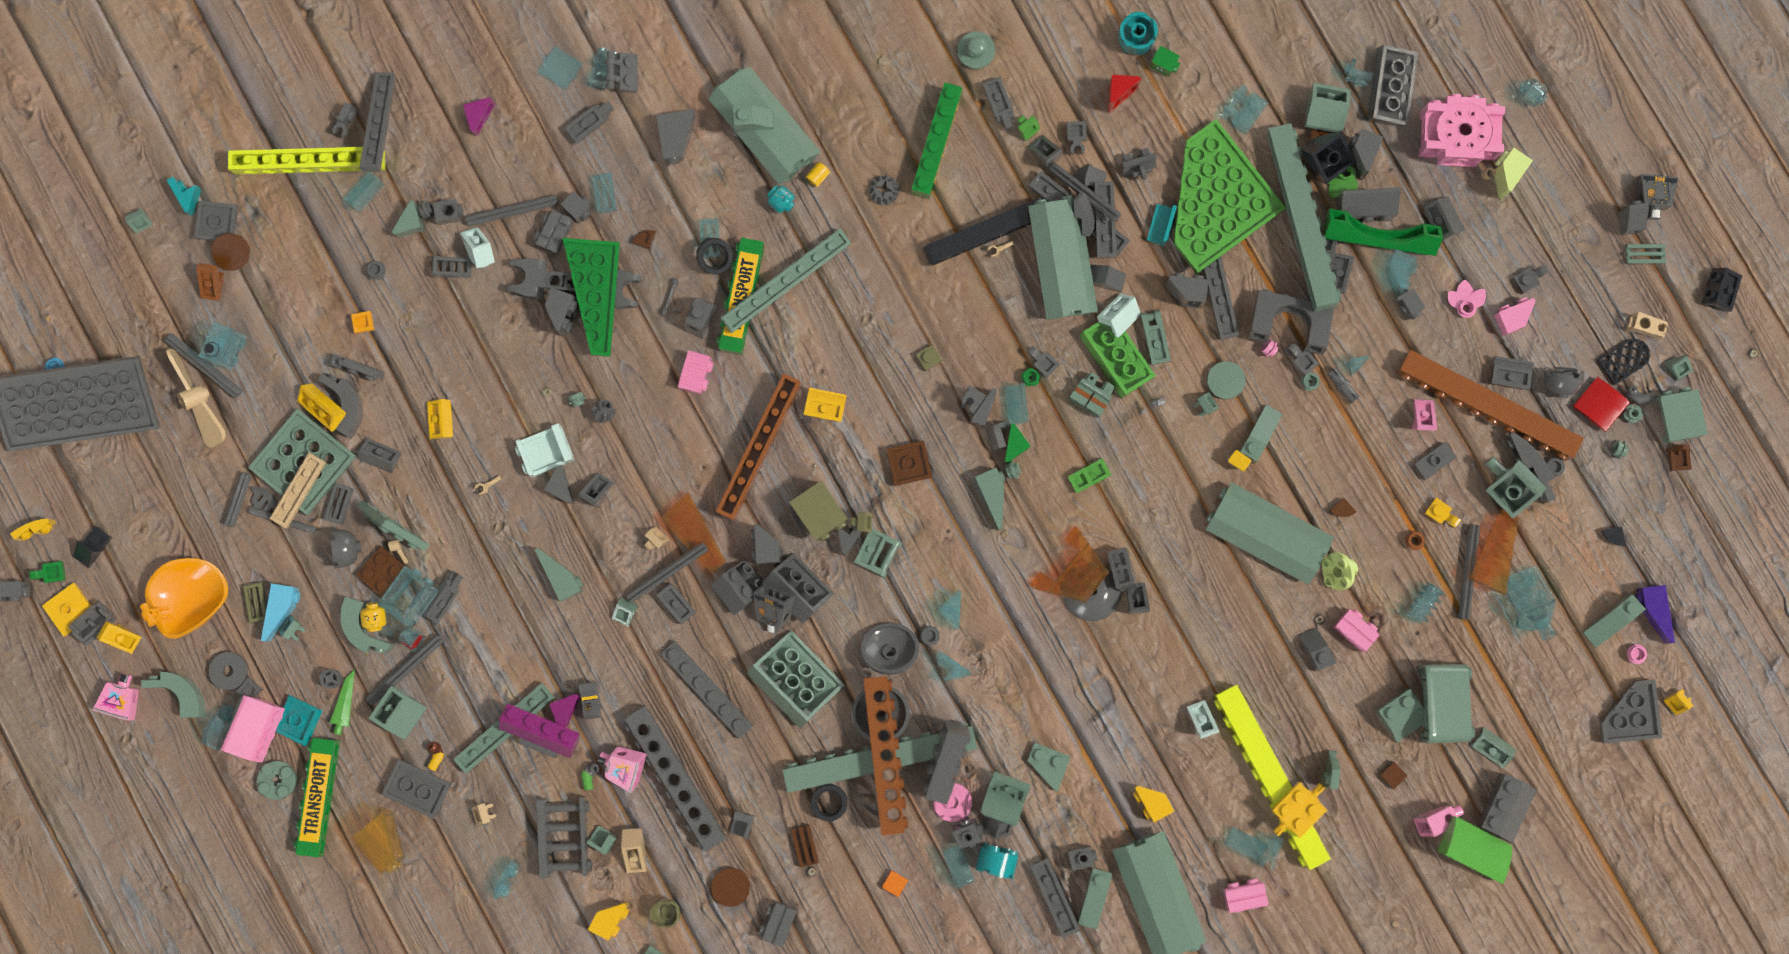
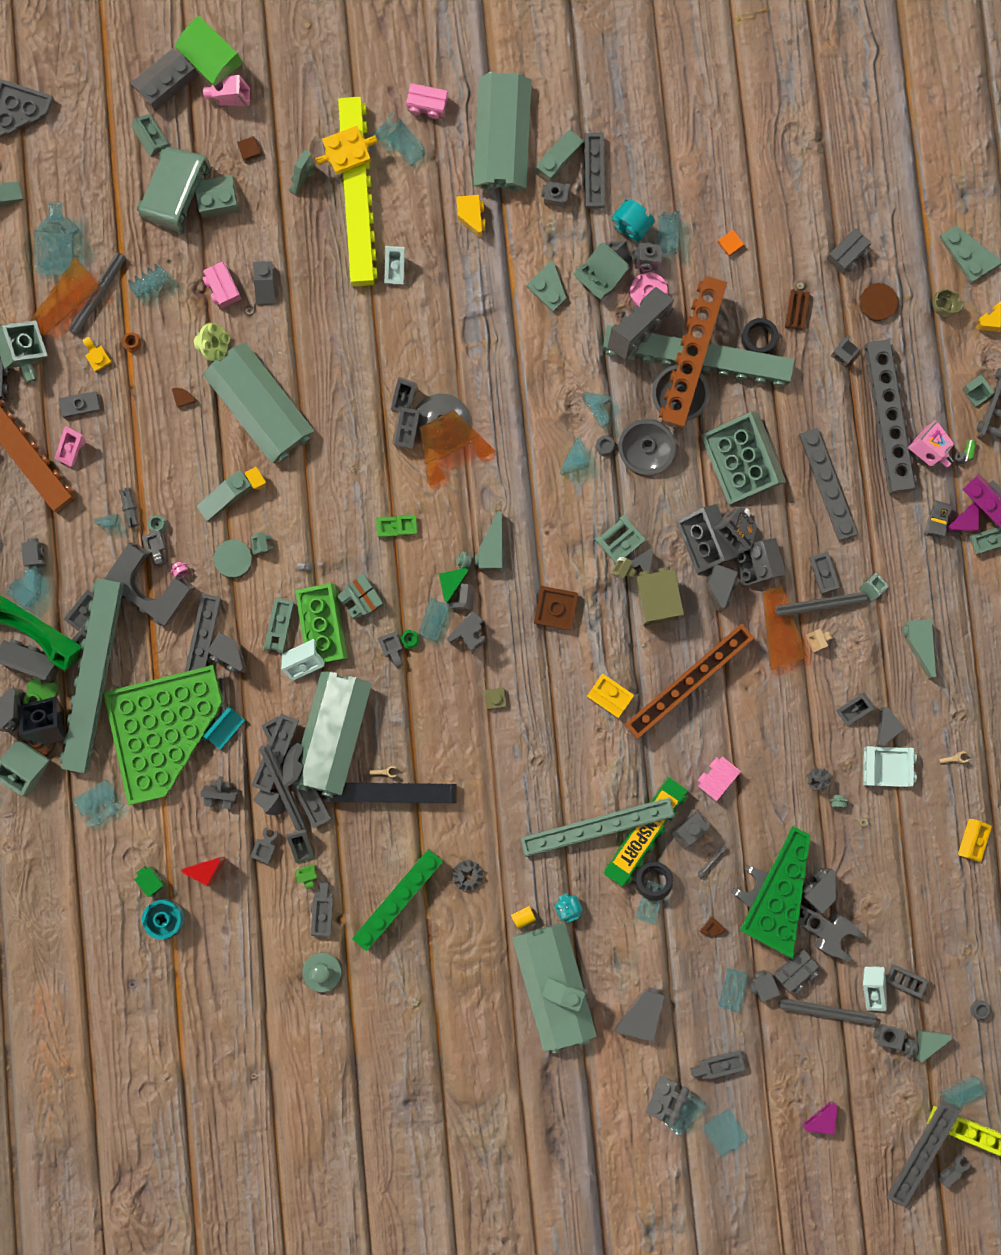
camera: 165 degrees left, 0 degrees up
(633, 850) = (953, 369): tan slope -> none
(1108, 277) = (297, 700): dark grey slope -> none

